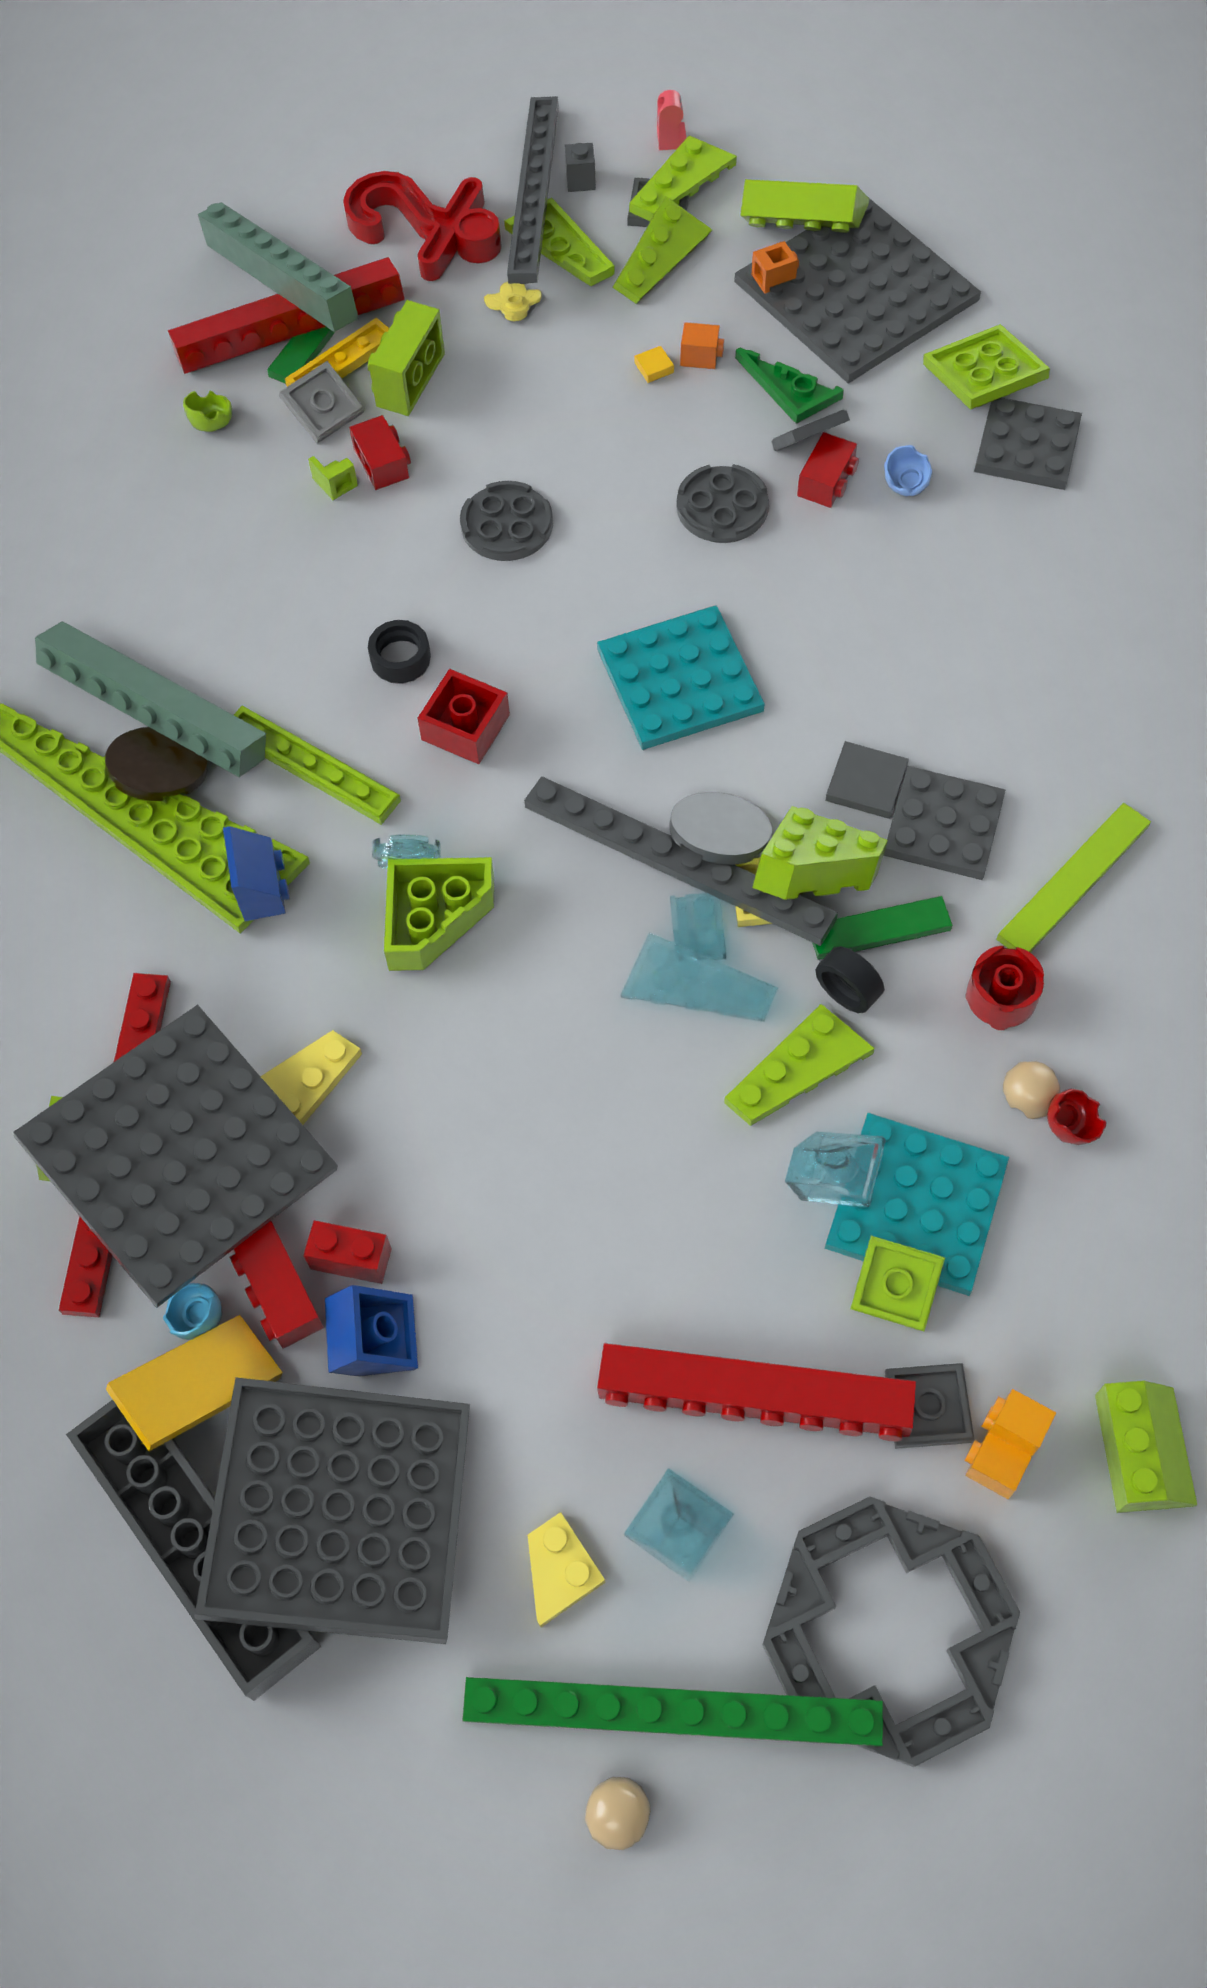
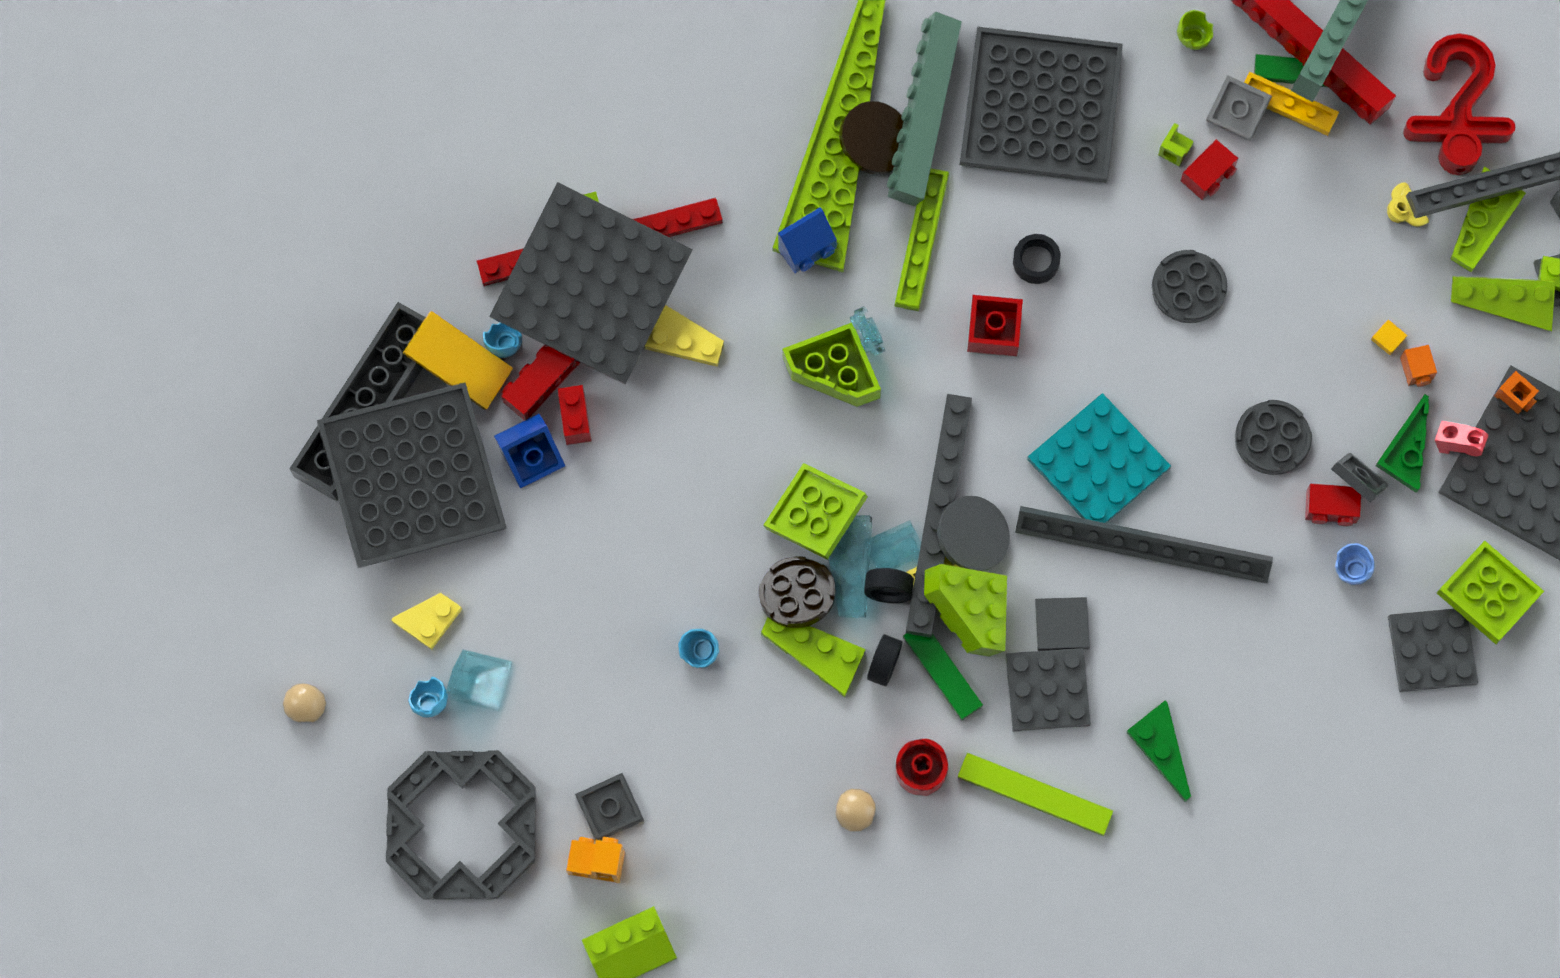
camera: 70 degrees right, 10 degrees up
(210, 586) = (1041, 104): none -> dark grey plate
(406, 357) = (1301, 152): lime brick -> none
(616, 994) = (815, 511): none -> lime plate
(674, 1711) = (368, 714): green plate -> none
(682, 1608) = (428, 698): none -> medium azure hair
(715, 1056) = (797, 592): none -> tile
(747, 1202) = (698, 648): none -> medium azure hair
(752, 940) = (888, 585): none -> black tyre
(757, 1391) = (576, 696): red brick -> none
(799, 666) = (1144, 544): none -> dark grey plate
(803, 331) = (1460, 439): none -> coral leg
(836, 1168) = (745, 695): clear light blue slope -> none
(897, 1283) = (680, 761): lime tile -> none
(926, 1197) = (744, 759): teal plate -> none
(1050, 731) = (1158, 741): none -> green wing
(1075, 1117) = (840, 842): red hair -> none

